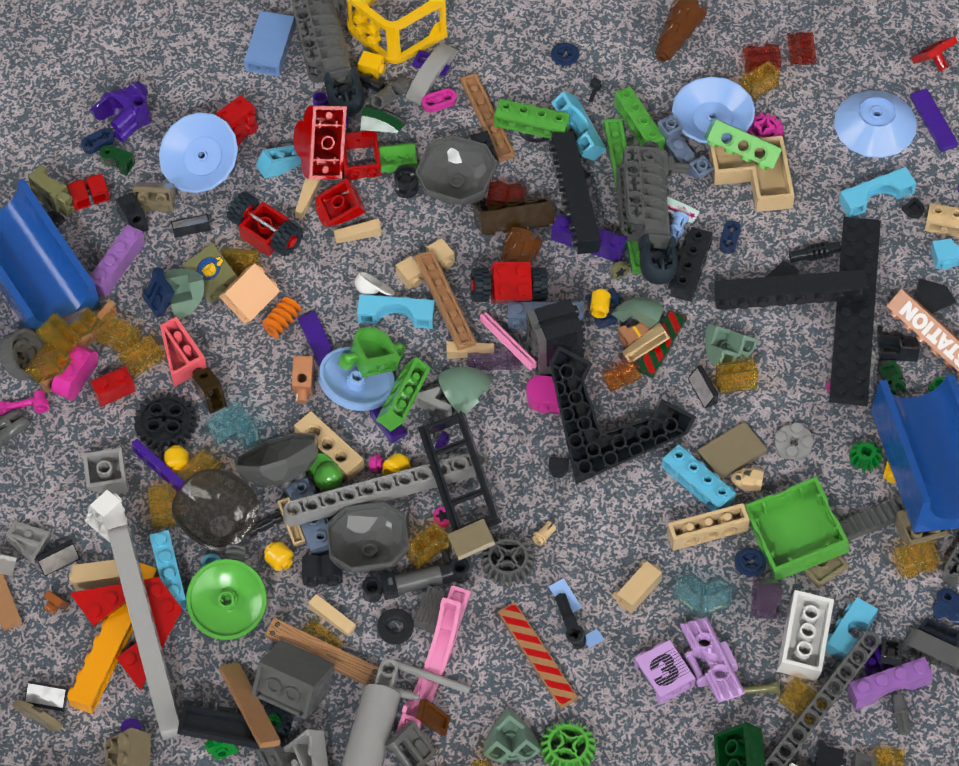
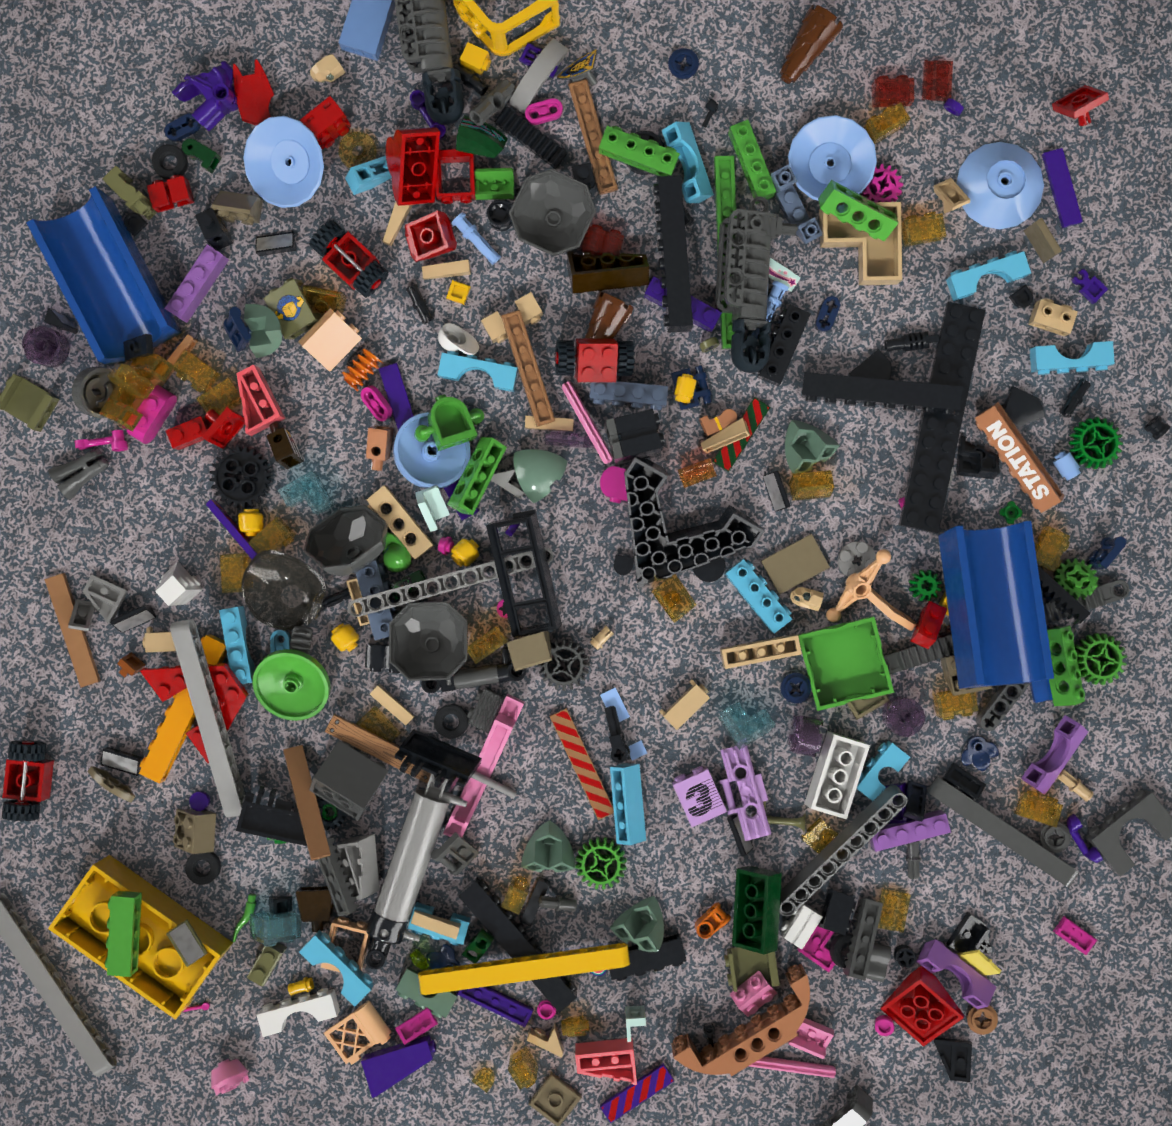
camera: 10 degrees right, 30 degrees up
(66, 307) = (138, 347): none -> black plate
(86, 158) = (167, 150): none -> black tyre
(106, 471) = (179, 532): light grey slope -> none
(148, 375) = (223, 426): none -> red tile
(164, 106) = (253, 94): none -> red shield
(233, 83) = (327, 69): none -> tan rock
(260, 138) = (353, 140): none -> clear yellow tile
(299, 346) = (376, 403): none -> dark pink plate
(334, 261) = (419, 303): none -> black pin
(360, 426) = (432, 506): none -> light aqua panel
(370, 249) = (458, 292): none -> yellow tile
(378, 199) = (470, 232): none -> light blue pin
(395, 655) = (435, 755): none -> black hinge
(427, 120) = (530, 137): none -> black gear
(433, 717) = (478, 825): reddish brown tile -> none
(476, 67) = (581, 69): none -> shield
(590, 683) = (628, 804): none -> medium azure brick
(611, 491) = (673, 598): none -> clear yellow slope
(641, 308) = (726, 399): sand green brick -> none
(646, 464) = (711, 571): none -> black piece
(712, 707) = (743, 846): none -> slope
(804, 449) = (859, 587): none -> light nougat piece
(809, 161) = (923, 229): none -> clear yellow brick
(820, 65) = (953, 107): none -> dark purple tile
(831, 132) = (951, 195): none -> tan slope
(864, 574) = (914, 716): none -> clear purple brick
(874, 486) = (928, 625): none -> red brick
(892, 373) = (964, 494): dark green plate -> none
(921, 157) = (1042, 240): none -> dark tan tile

